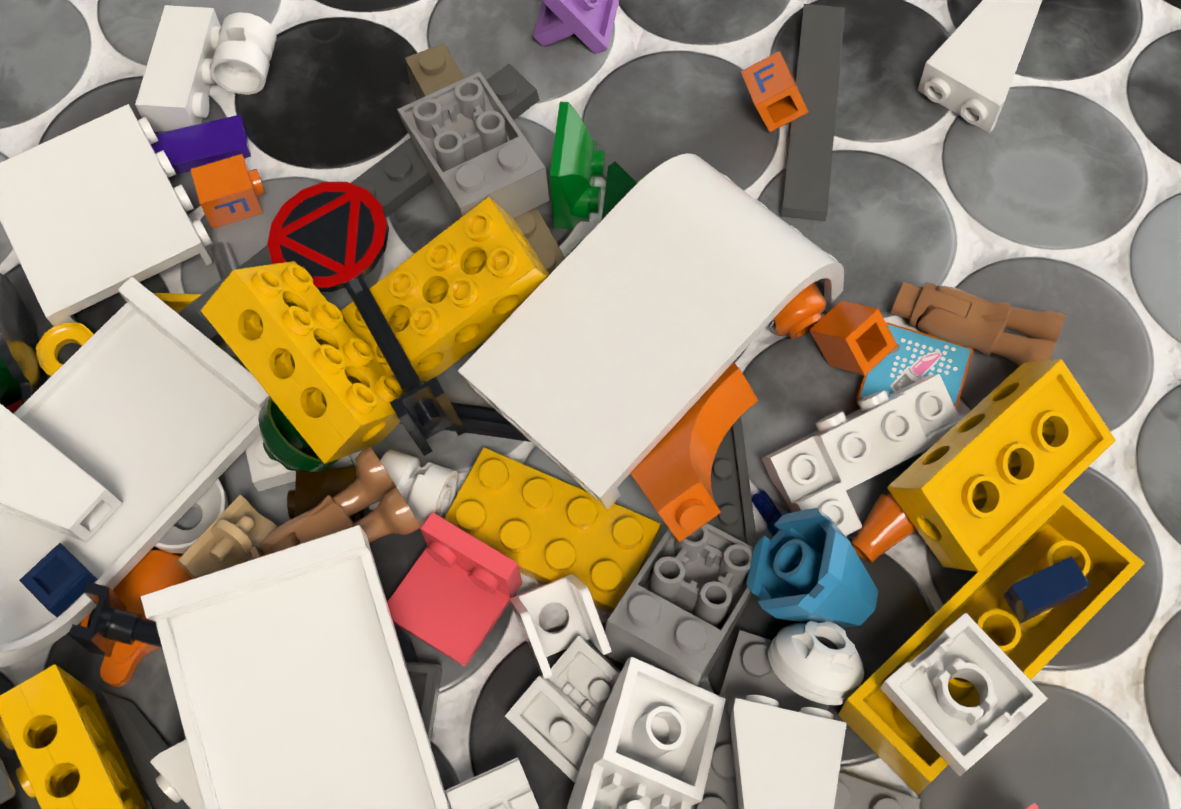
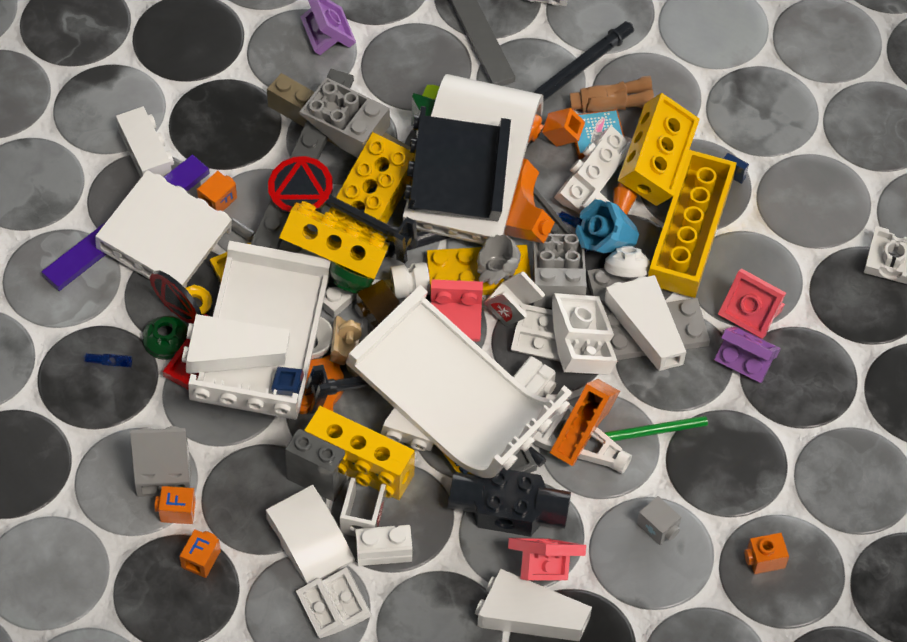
camera: 35 degrees left, 5 degrees down
(243, 53) = (173, 123): white wheel -> none
(334, 512) = (392, 298): medium nougat piece -> none
(571, 534) = (498, 259): none -> light grey hair
(574, 170) = (381, 93): green slope -> none
(589, 325) = (458, 167): none -> black panel
(774, 91) = (456, 28): orange brick -> none
(957, 731) = (694, 255): white brick -> none
(1036, 221) = (614, 38): none -> black axle
(1046, 589) = (703, 189): dark blue piece -> none
(1151, 573) = (741, 167): none -> dark blue tile

